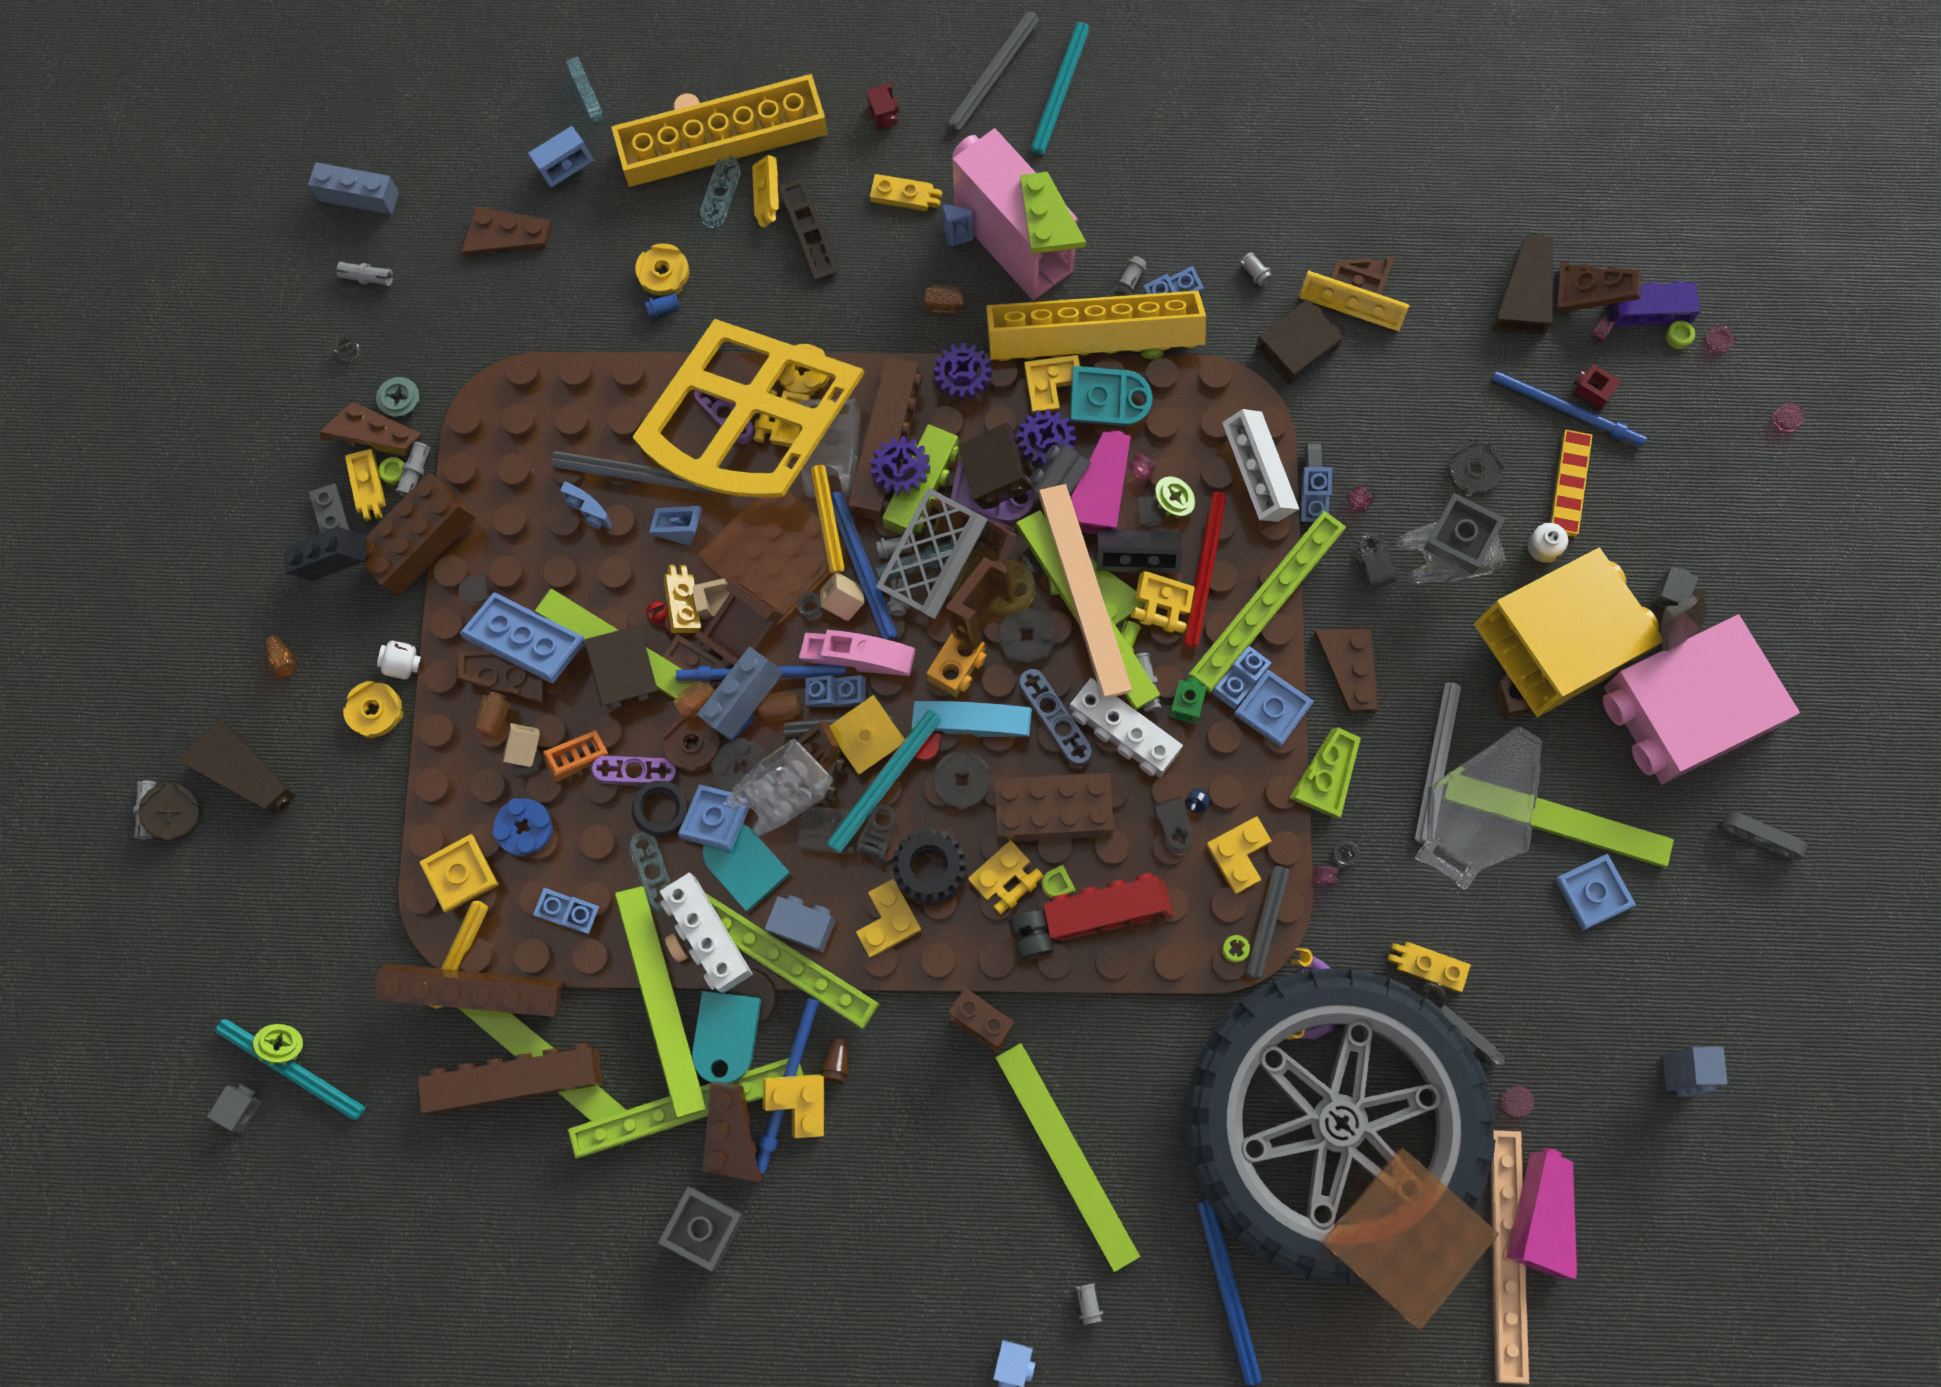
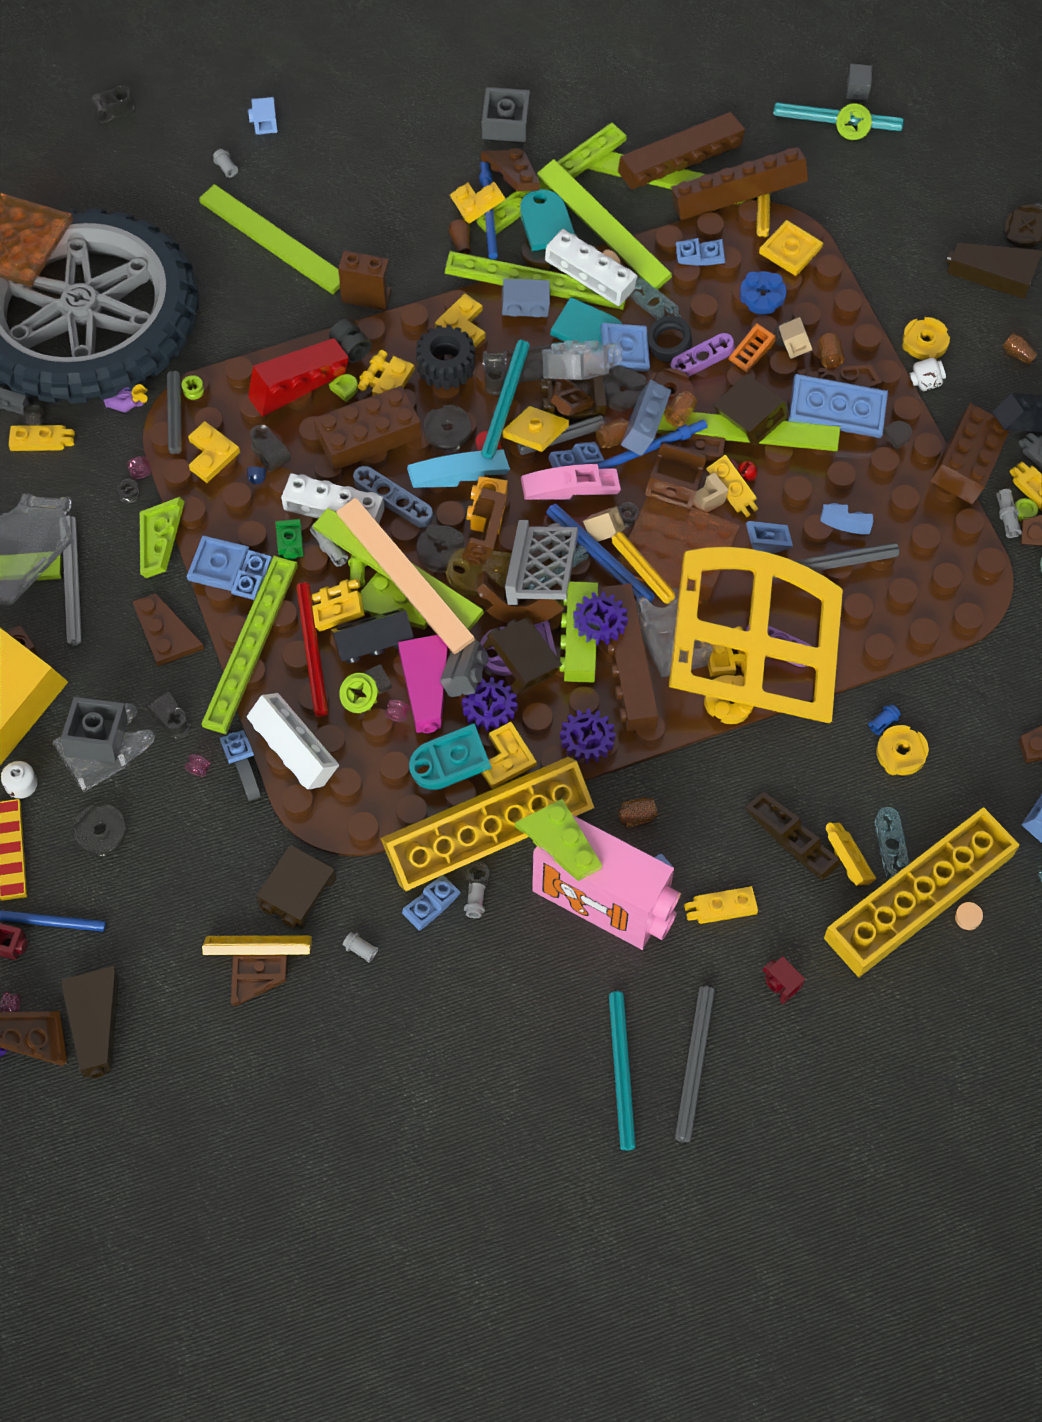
camera: 155 degrees right, 10 degrees down
(887, 547) = (584, 573): light grey pin -> none
(1229, 1294) = (123, 190): blue axle -> none

